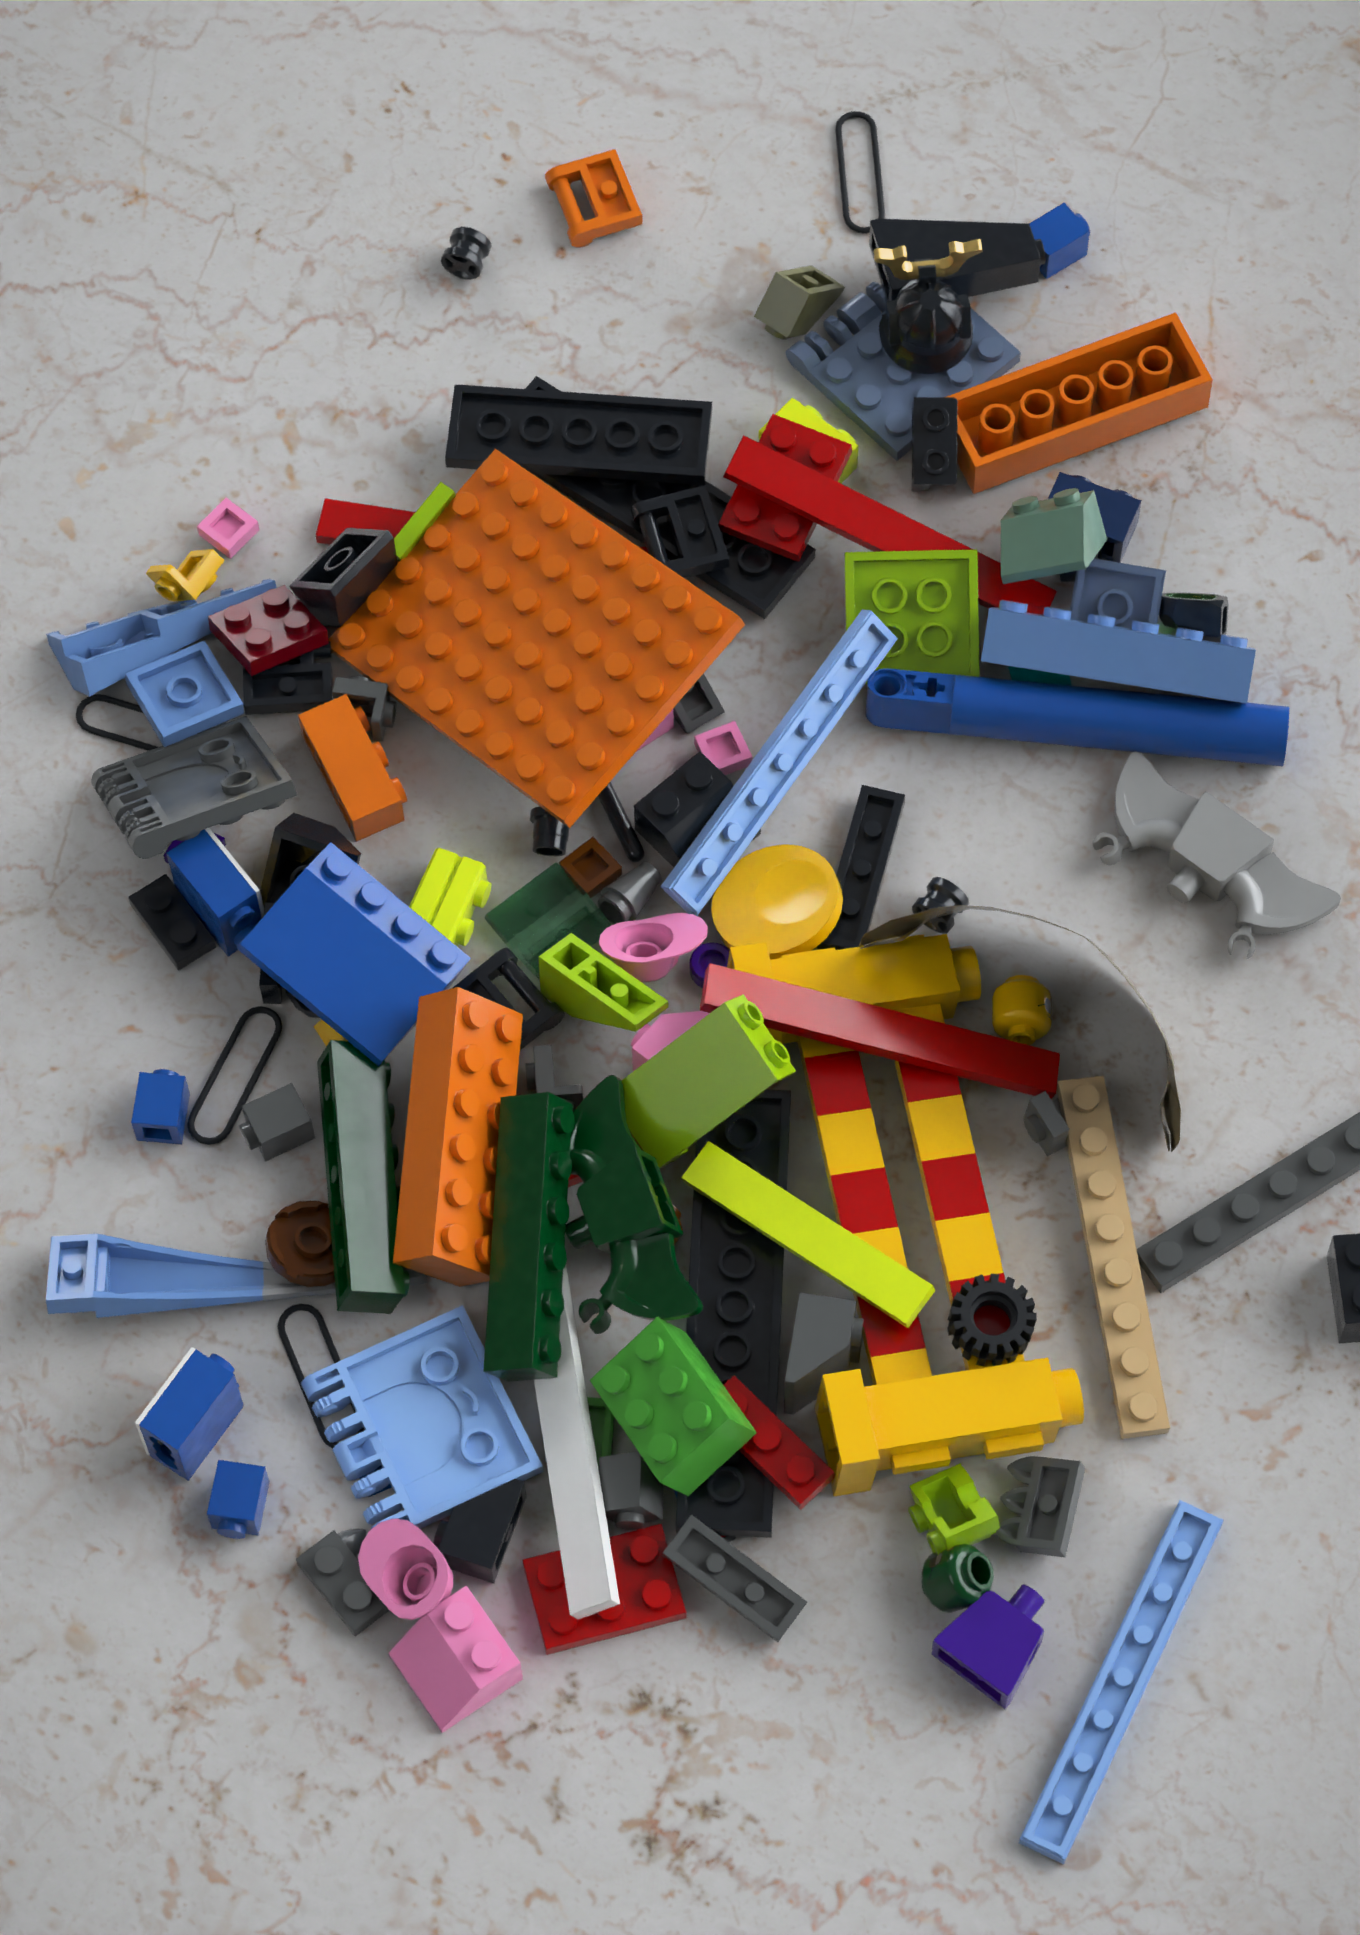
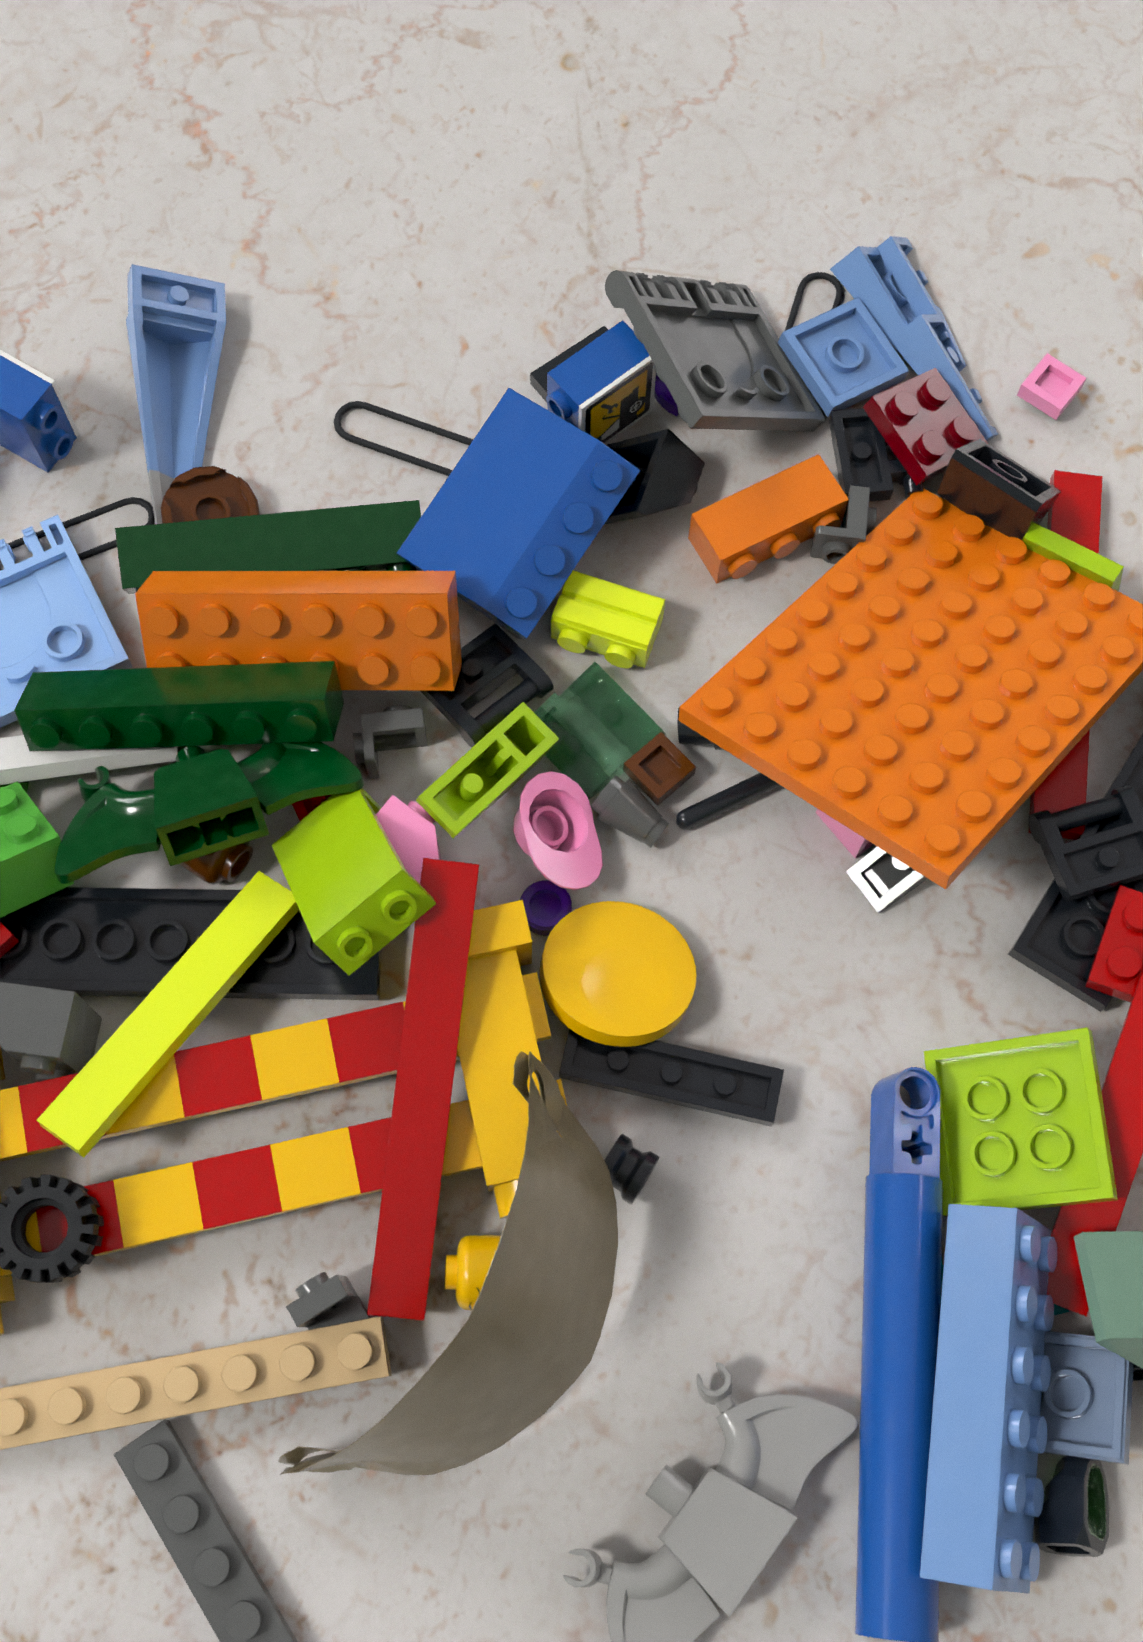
camera: 85 degrees right, 5 degrees up
(160, 1107) = (365, 368): blue brick -> none
(191, 578) = (988, 359): yellow bracket -> none
(276, 1122) = (346, 471): dark grey brick -> none
(681, 807) = (725, 879): black slope -> none
(724, 748) = (822, 908): bright pink plate -> none
(779, 762) = (807, 970): light blue tile -> none

